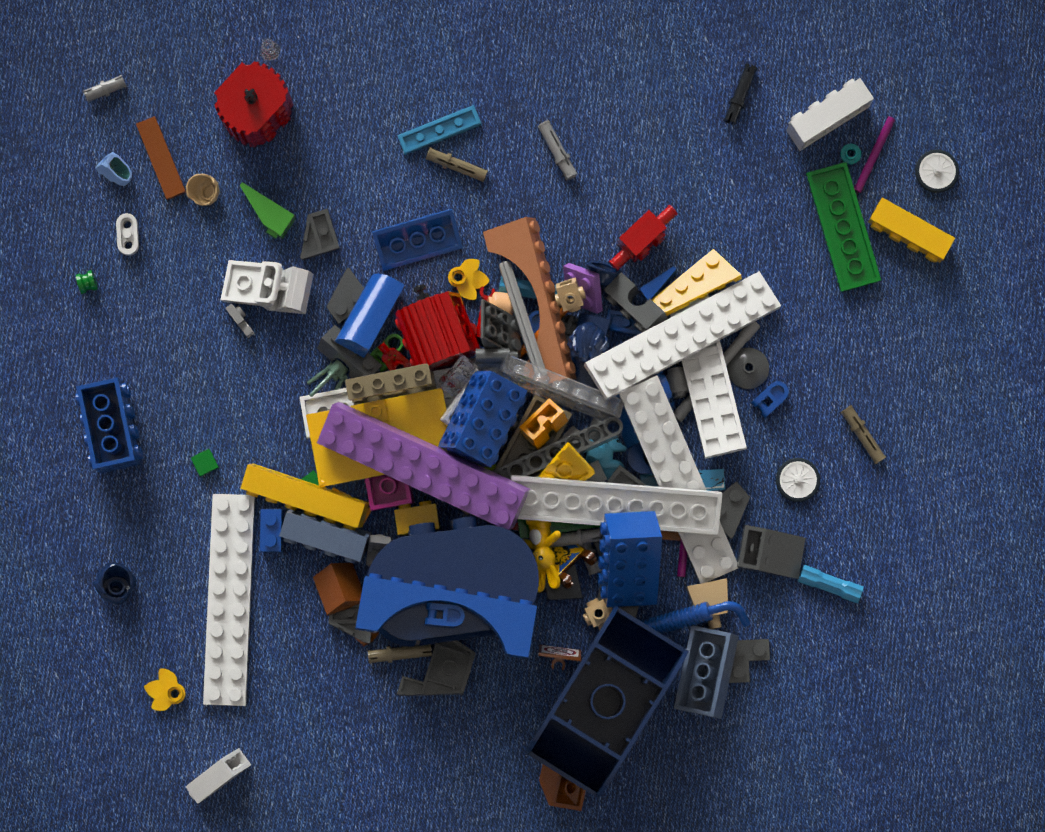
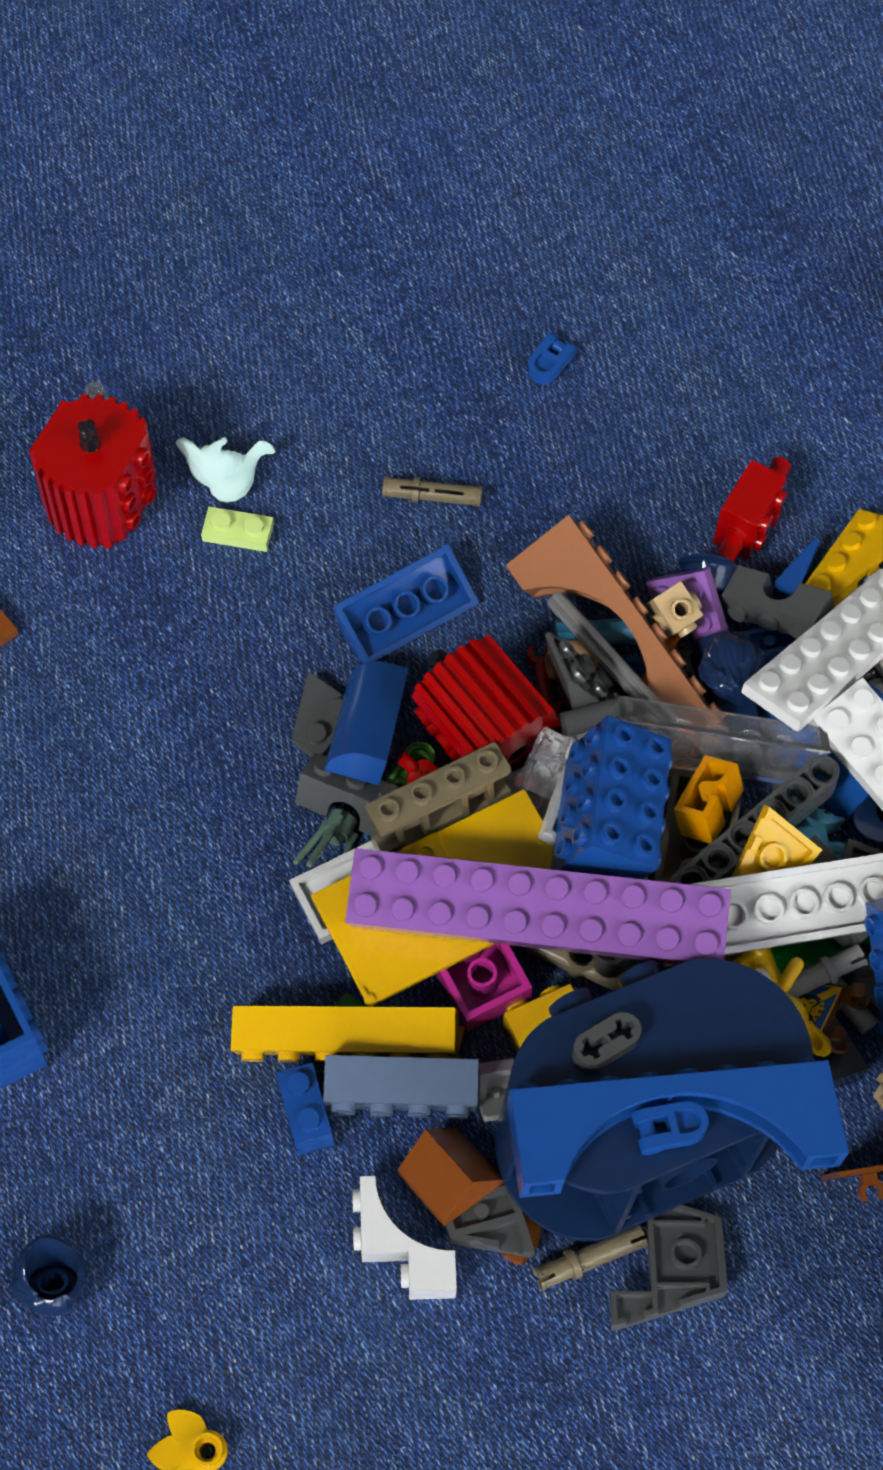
camera: 20 degrees left, 20 degrees down
(202, 189) = (44, 616): tan hair -> none
(204, 462) = (156, 1032): green tile -> none
(229, 600) = (263, 1260): white plate -> none
(238, 314) = (152, 789): light grey plate -> none
(267, 286) = (188, 726): white piece -> none
(273, 216) = (163, 626): bright green slope -> none
(291, 611) = (428, 1271): none -> white arch
(319, 235) = (249, 639): dark grey wing -> none
(332, 157) = (237, 529): none -> yellowish green plate
(334, 120) = (224, 472): none -> light aqua piece
(428, 565) = (611, 1049): none -> dark grey beam
(439, 130) = (389, 455): dark azure tile -> none
(471, 279) = (510, 639): yellow plate -> none
(554, 94) = (545, 365): none -> blue plate
(554, 144) = (585, 444): light grey pin -> none
(737, 102) = (813, 315): black pin -> none

